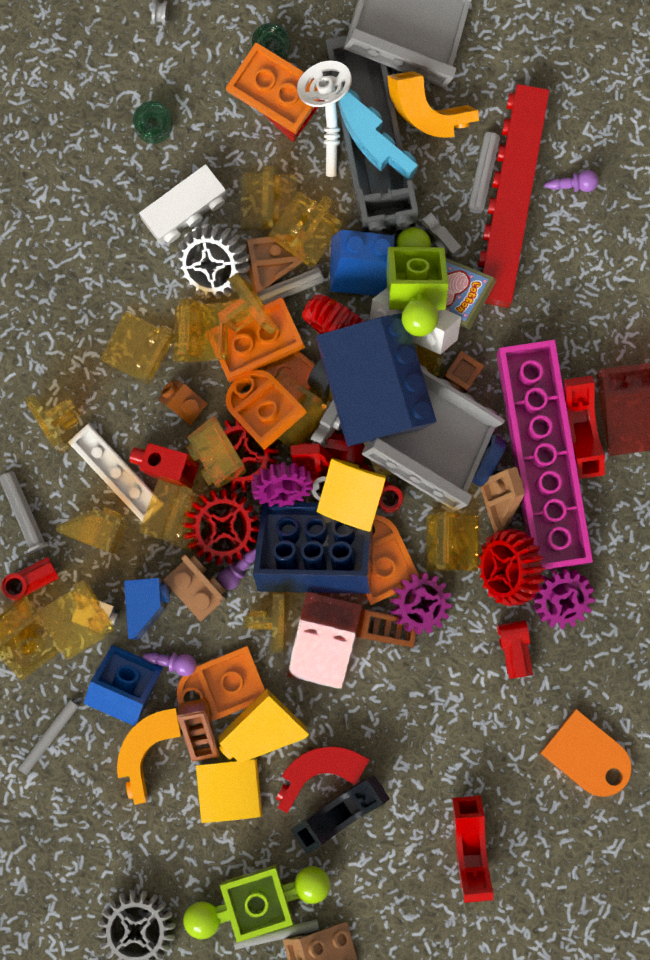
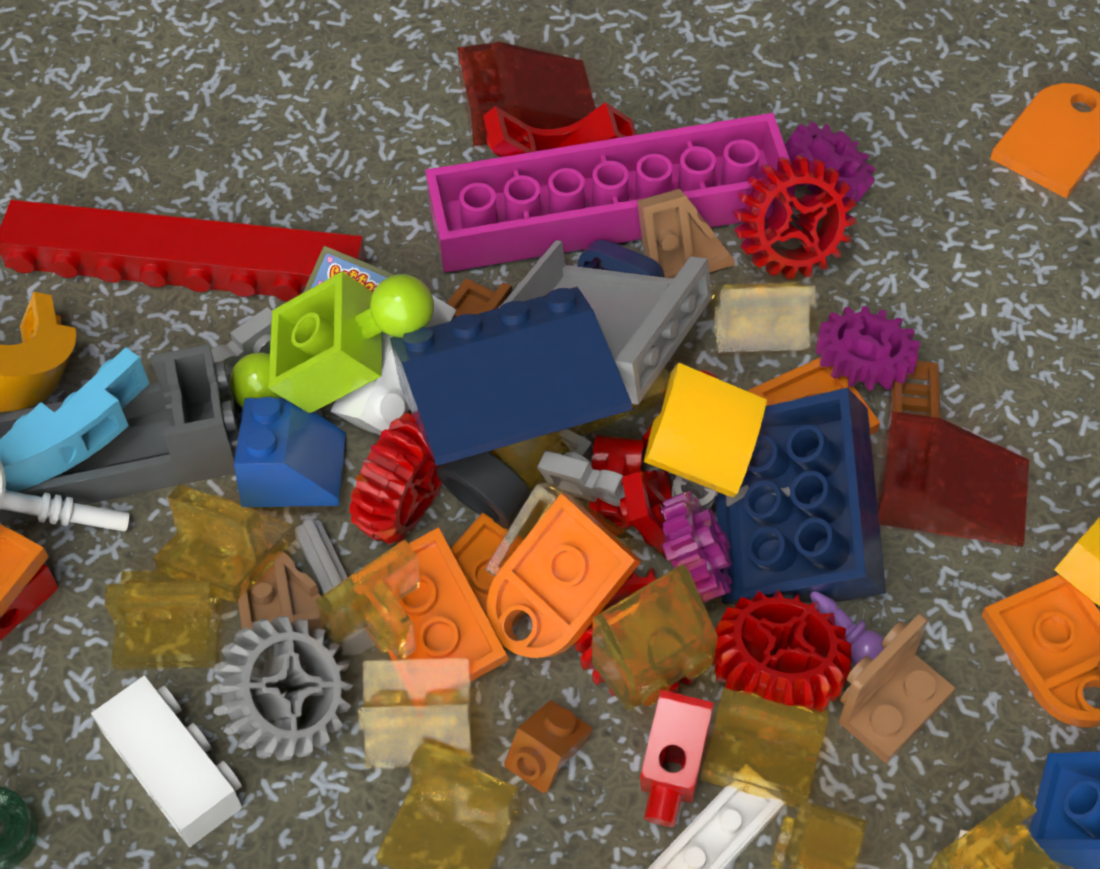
camera: 90 degrees left, 25 degrees down
(144, 604) = (951, 771): blue slope -> none
(183, 664) = (1039, 712): medium lavender bar -> none
(260, 621) = (944, 552): clear yellow bracket -> none
(484, 171) = (137, 297): light grey axle -> none
(515, 644) = (906, 227): red piece -> none
(585, 181) = (164, 167): medium lavender bar -> none

